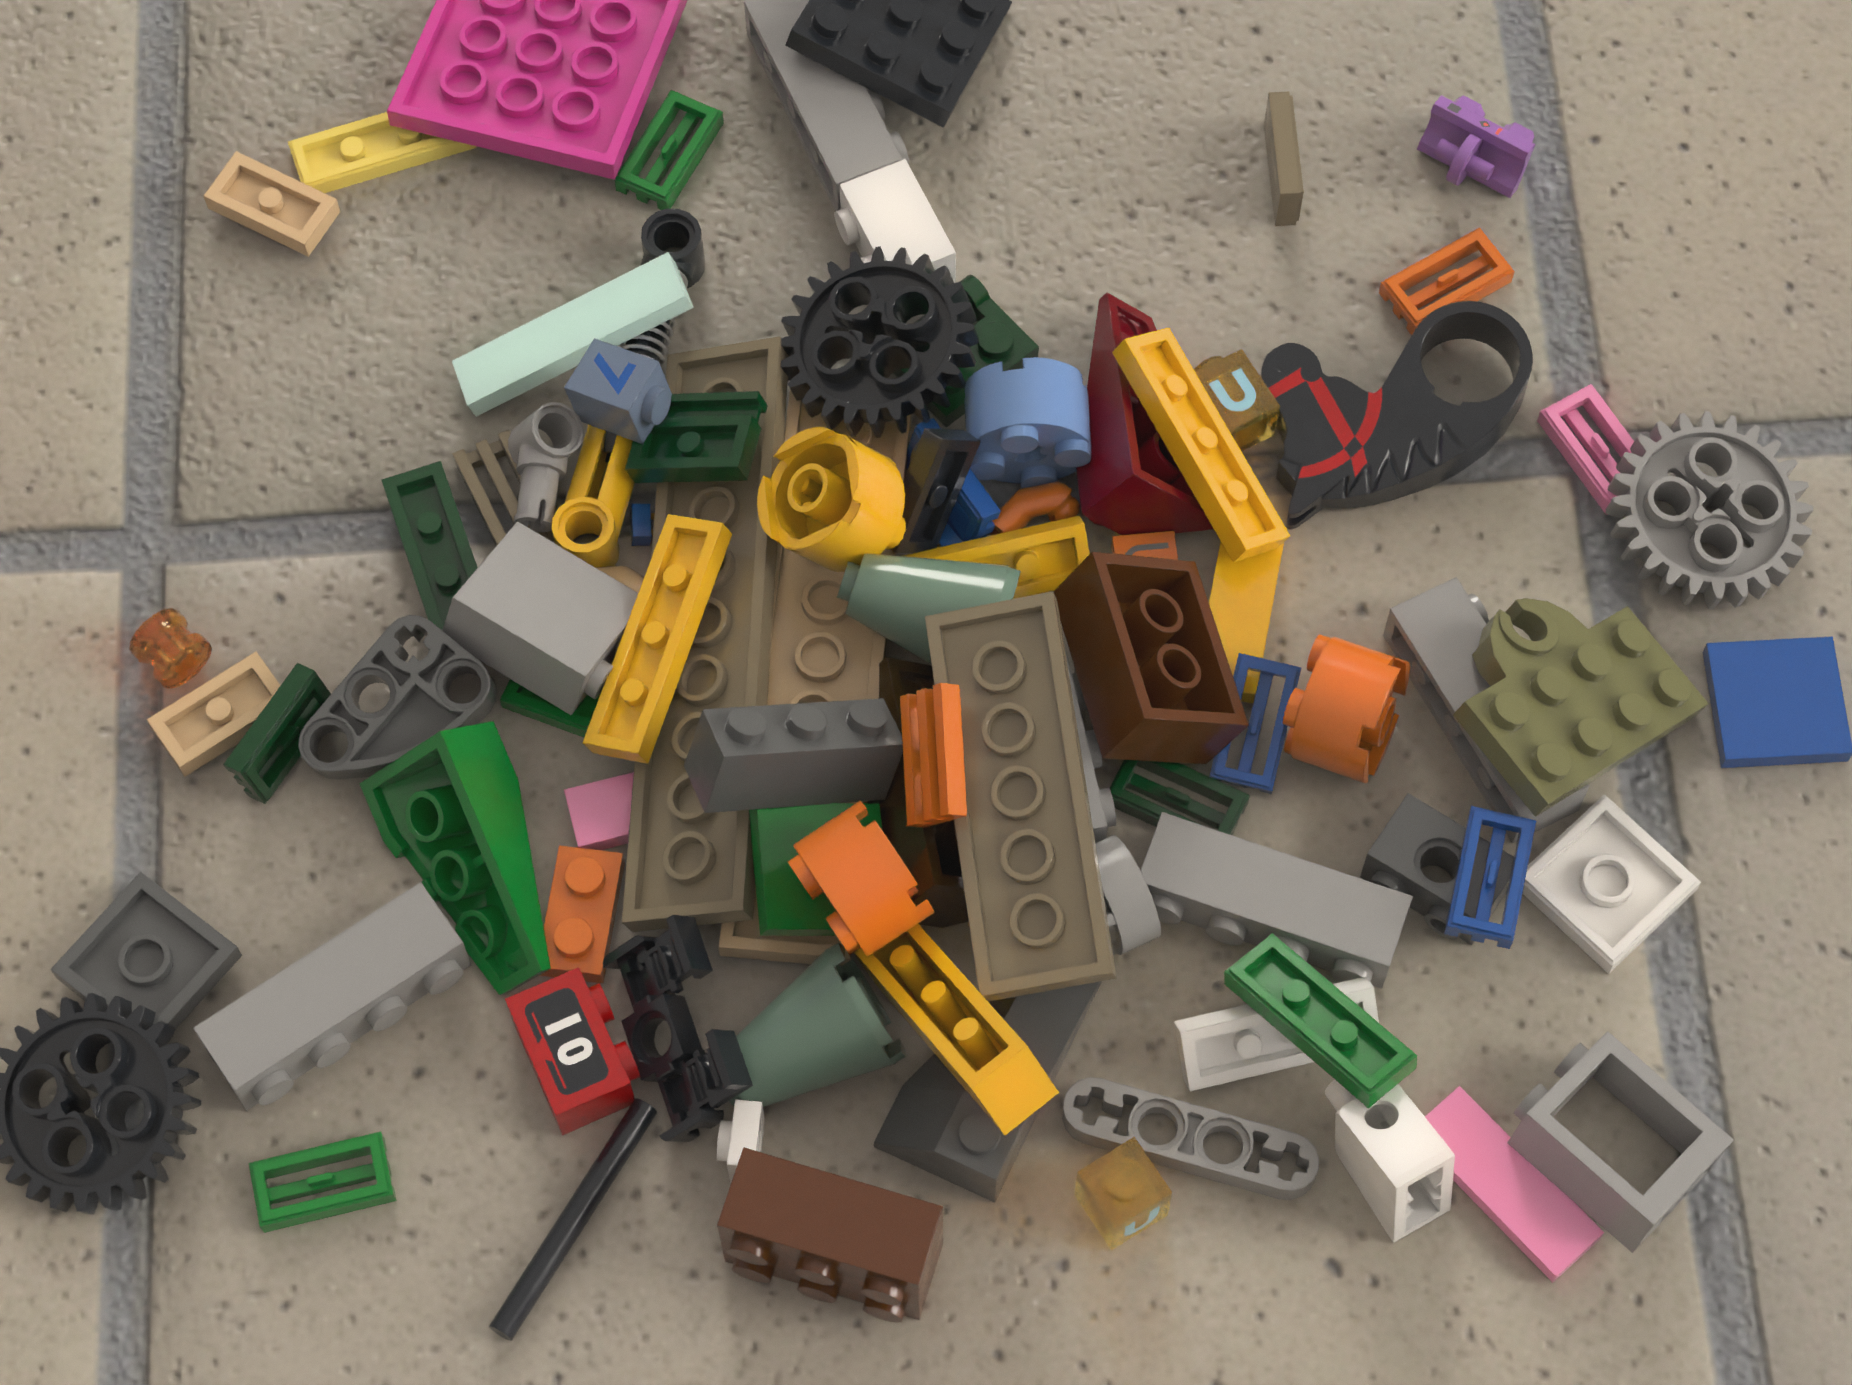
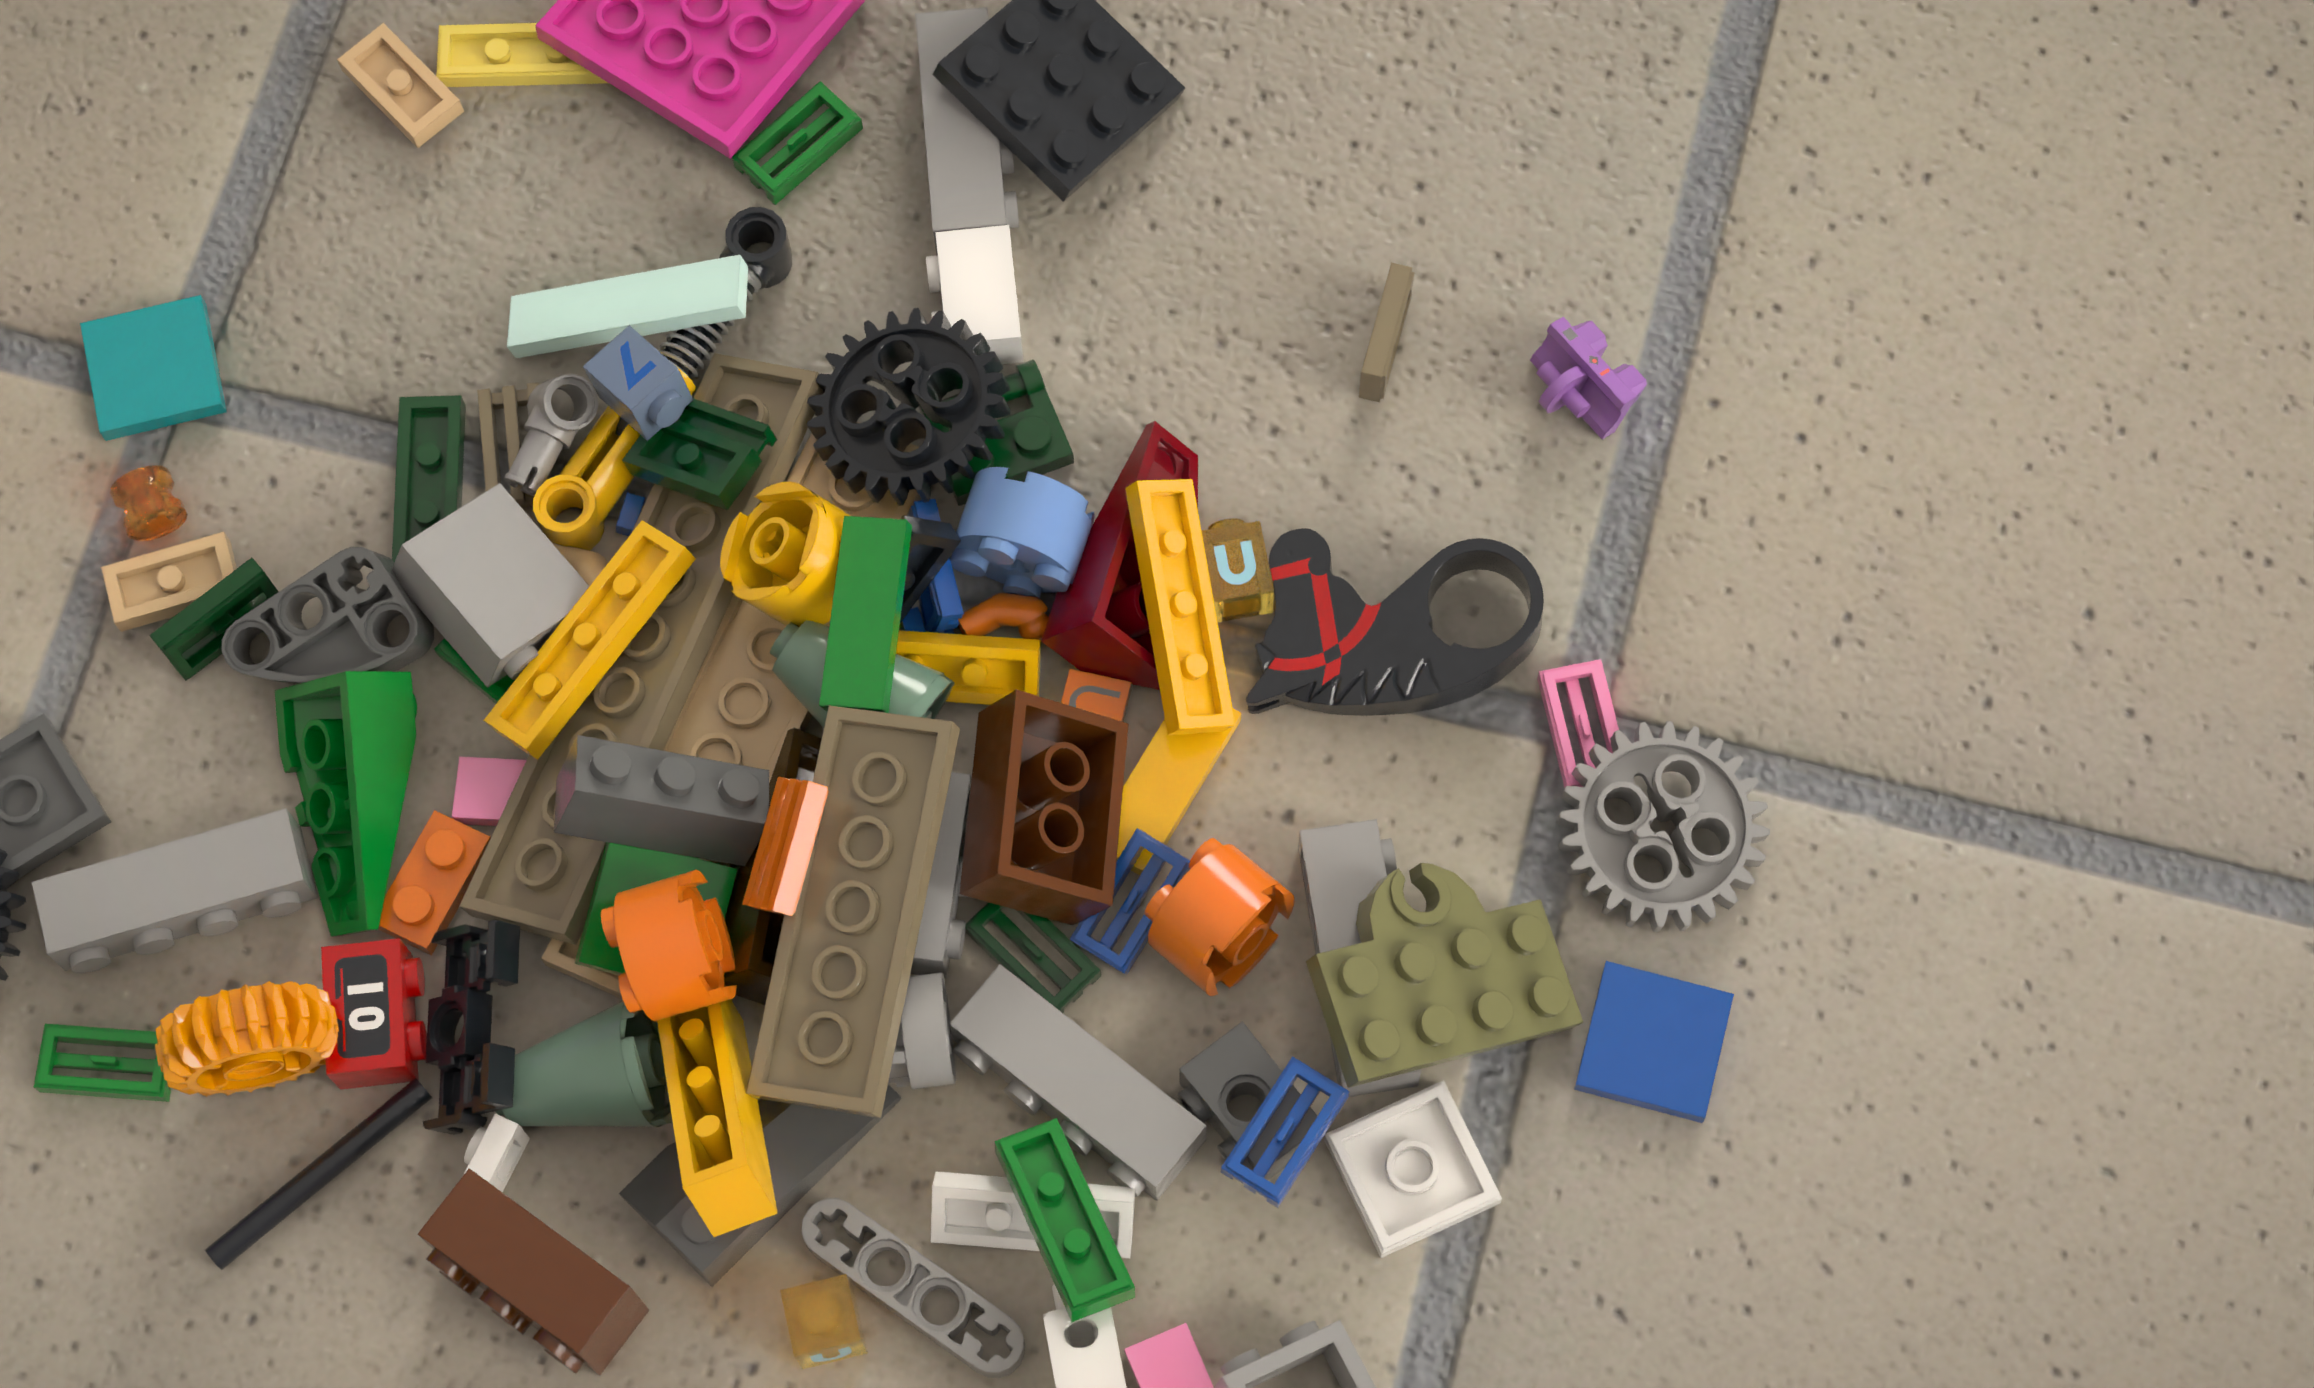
camera: 20 degrees right, 5 degrees up
(125, 526) = (153, 367): none -> teal tile
(468, 1103) = (246, 1038): none -> light orange gear
(926, 523) = (866, 613): none -> green tile
(1408, 306) = (1498, 485): orange tile -> none

